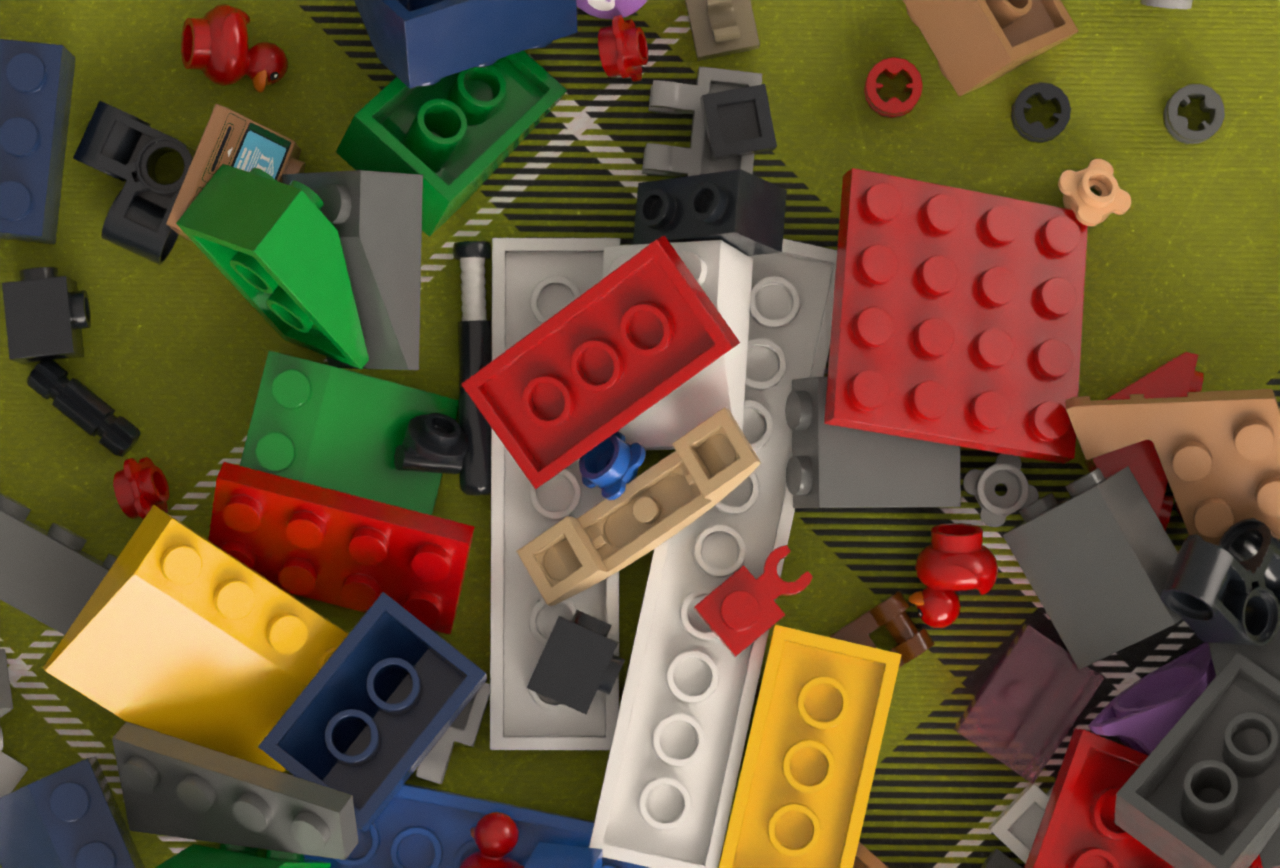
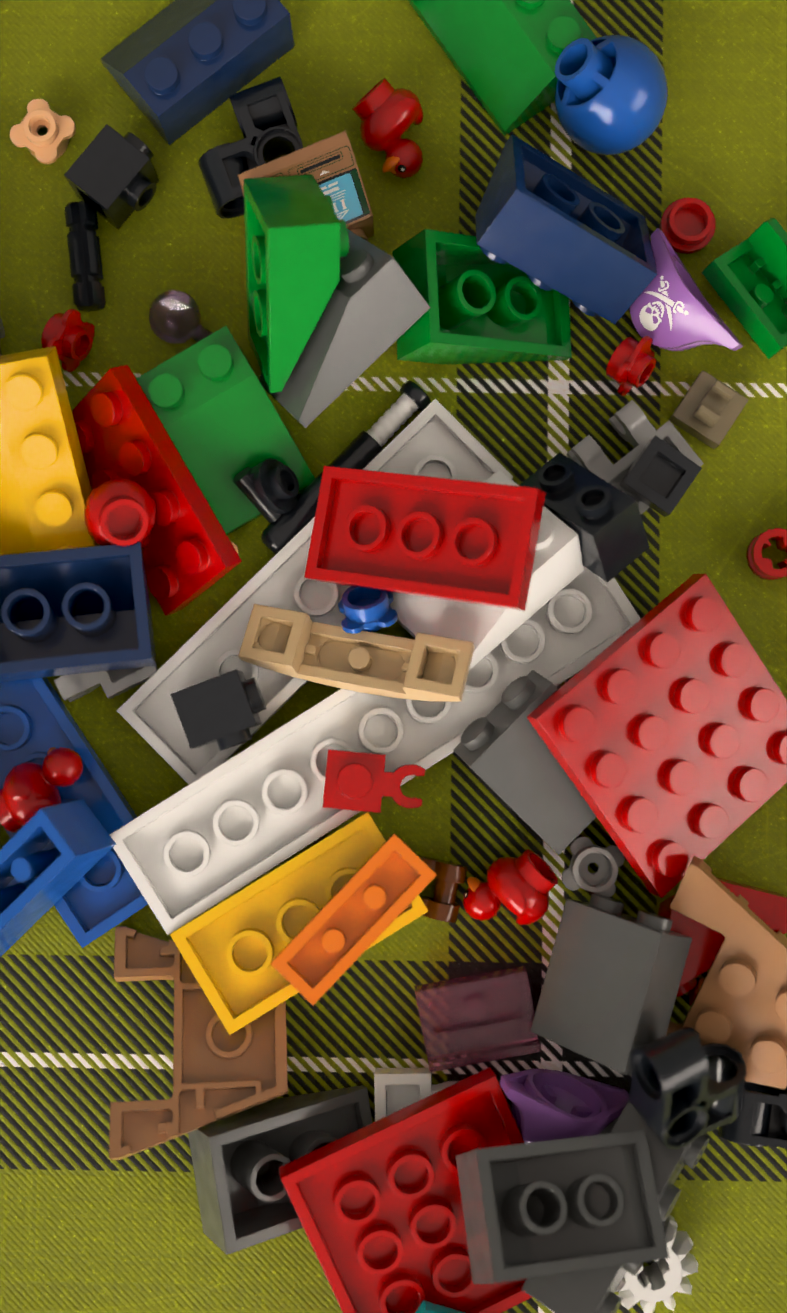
camera: 45 degrees right, 0 degrees up
(213, 382) = (176, 318): none -> piece
(342, 586) = (119, 513): none -> red animal
(848, 716) = (353, 919): none -> orange plate

